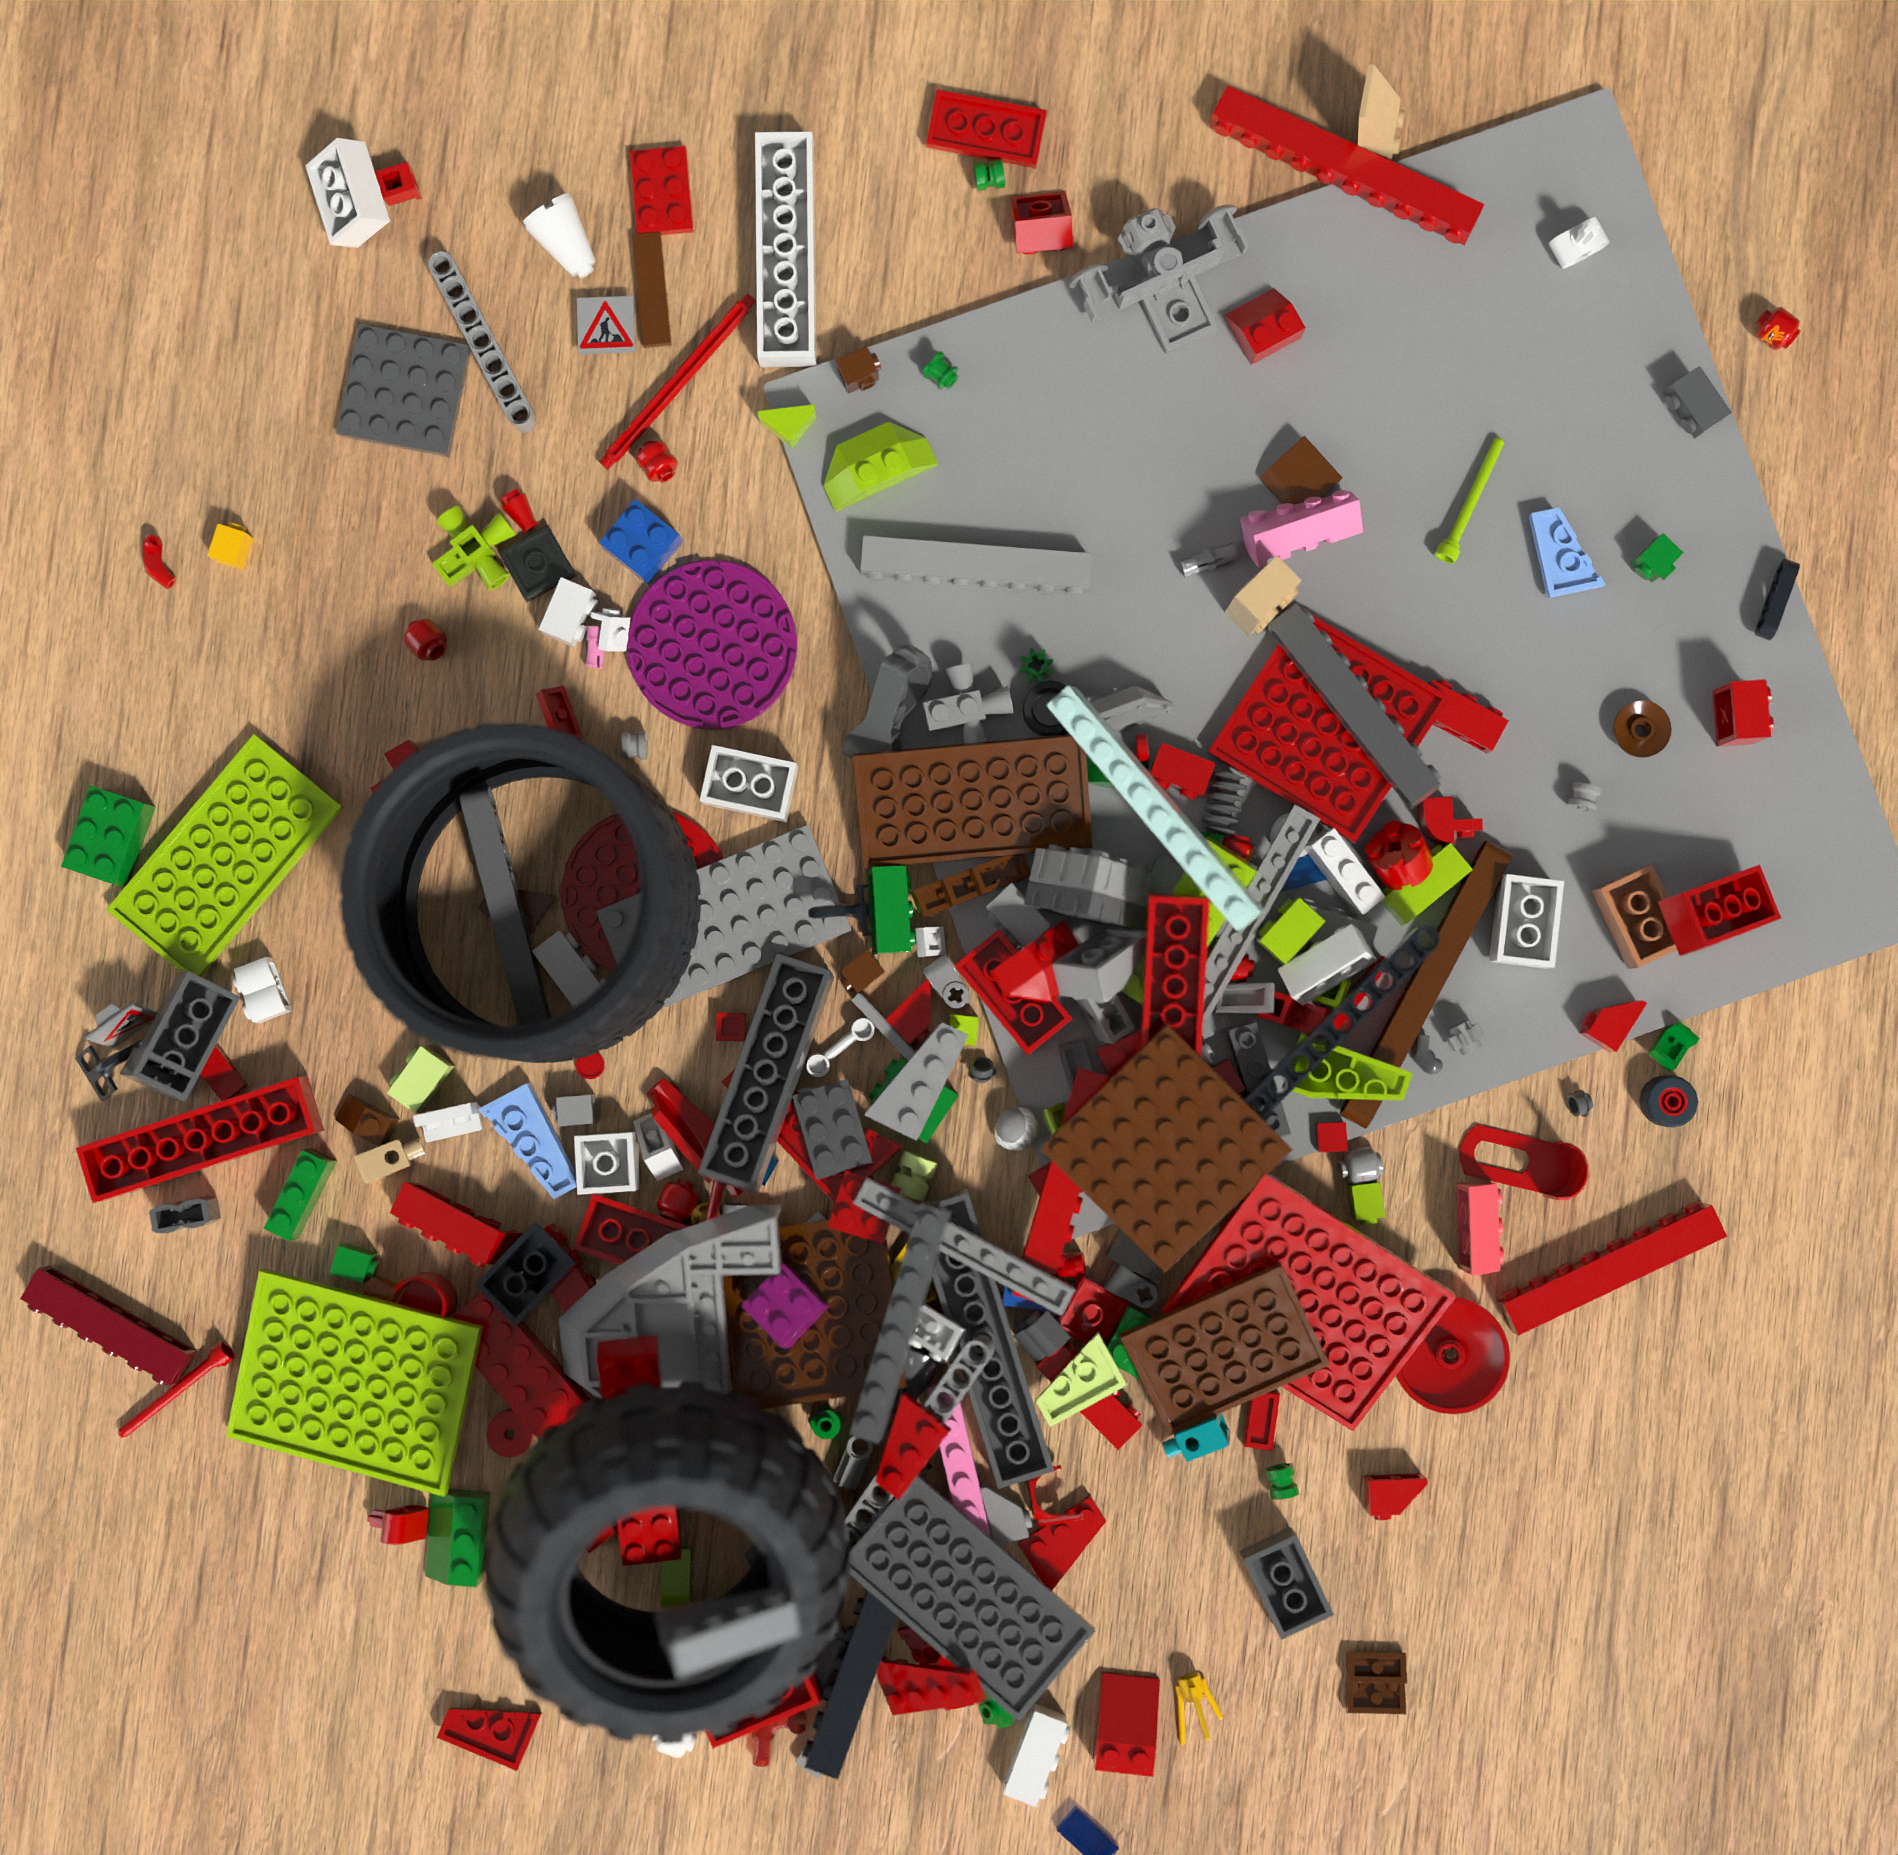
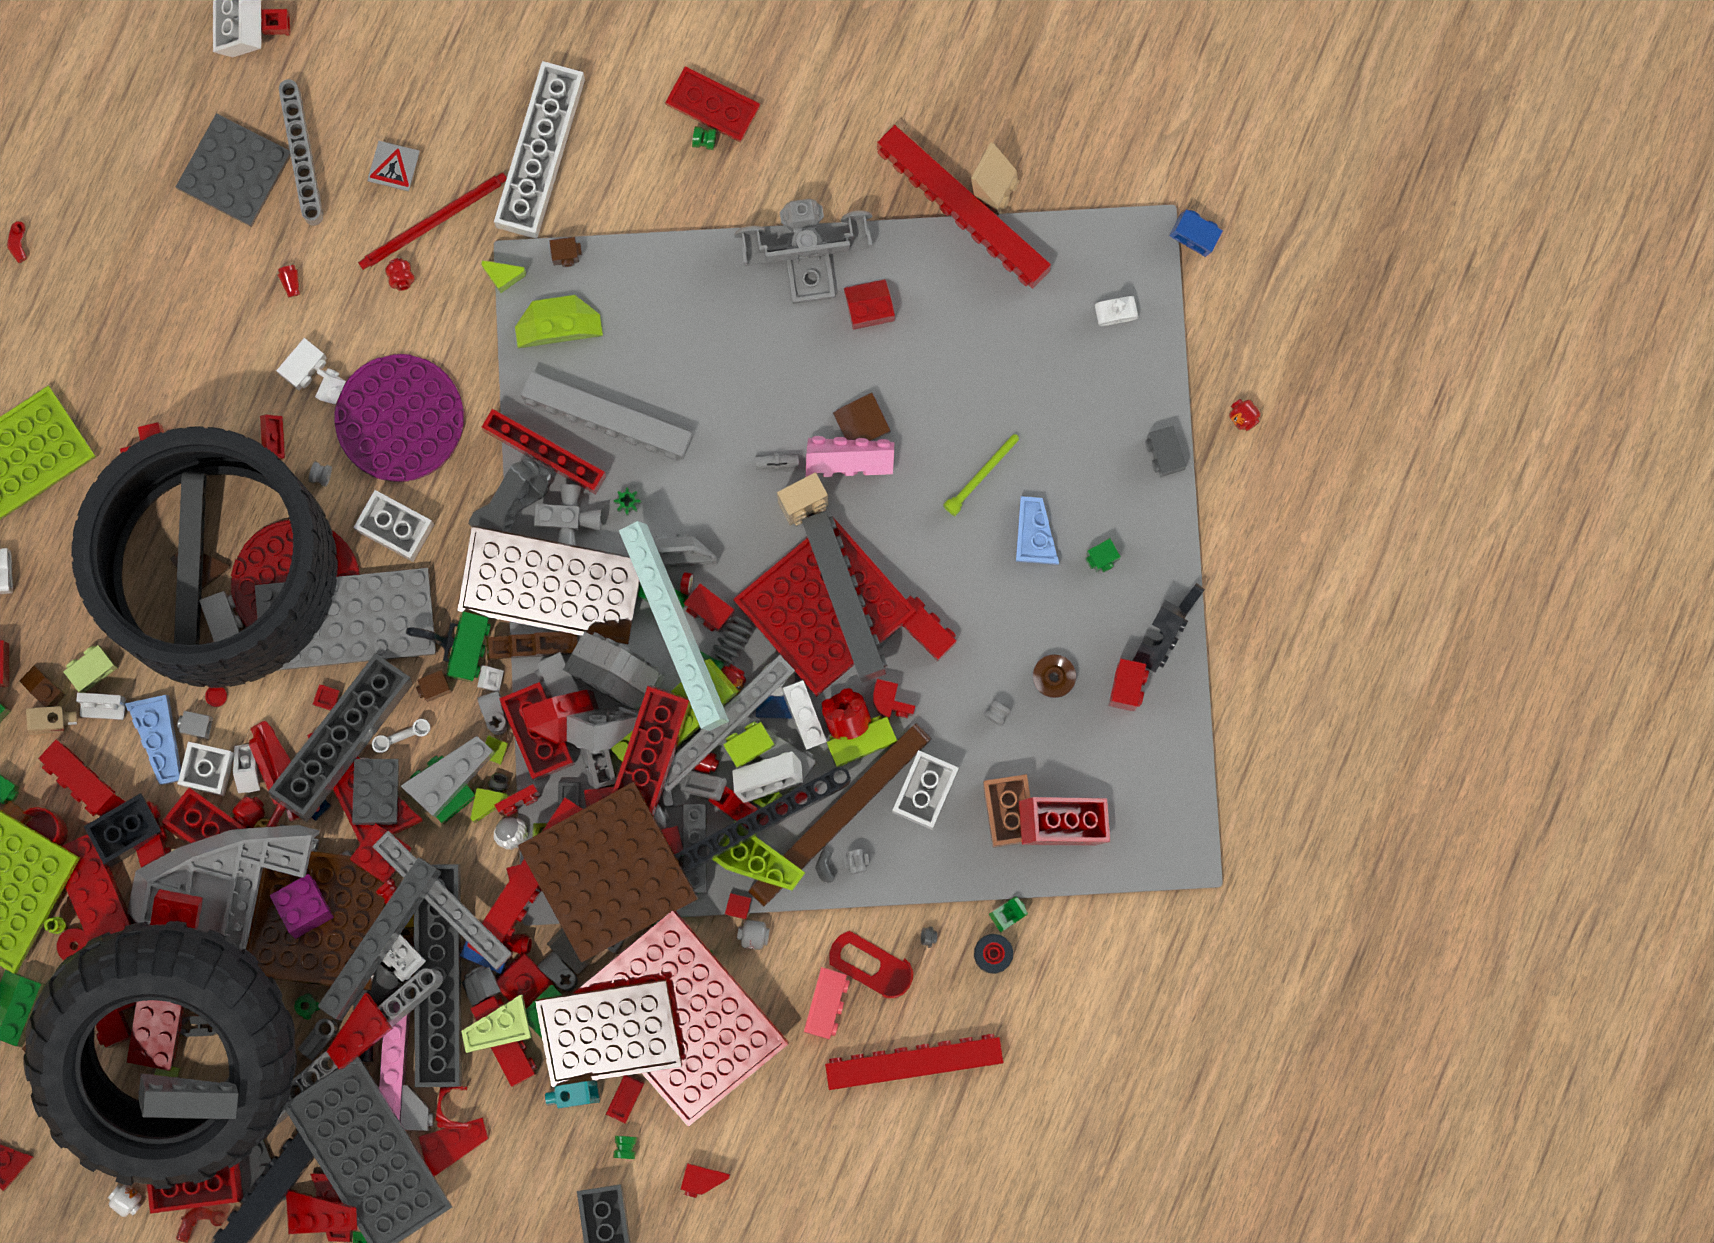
camera: 15 degrees right, 5 degrees down
(230, 545) = (74, 245): yellow brick -> none
(425, 639) = (193, 354): red head -> none
(472, 549) = (247, 299): lime brick -> none
(478, 1418) = (55, 925): none -> lime axle
(537, 563) = (290, 322): pearl dark grey tile -> none
(562, 235) = (382, 93): white cone -> none
(594, 655) = (311, 401): bright pink pin -> none
(641, 541) = (370, 329): blue brick -> none
(652, 290) = (435, 149): reddish brown tile -> none
(662, 190) = (464, 81): red plate -> none
(885, 1028) = (436, 727): light grey tile -> none
(891, 1254) = (387, 890): none -> red wheel
(899, 629) = (543, 450): none -> red brick
(913, 1015) = (461, 727): red slope -> none
(914, 1175) = (425, 843): yellowish green wheel -> none
(941, 372) = (624, 270): green brick -> none
(974, 1099) = (484, 803): none -> lime slope
(1008, 1097) = (510, 805): none -> red plate
(1030, 719) = (626, 518): black tyre -> none
(1041, 222) = (731, 182): slope -> none
(1366, 1202) = (749, 961): lime brick -> none
(1470, 1377) = (792, 1107): red dish -> none
(1611, 1024) = (966, 883): red slope -> none
(1648, 114) = (1196, 232): none -> blue brick
(1763, 661) = (1170, 621): none -> black arch

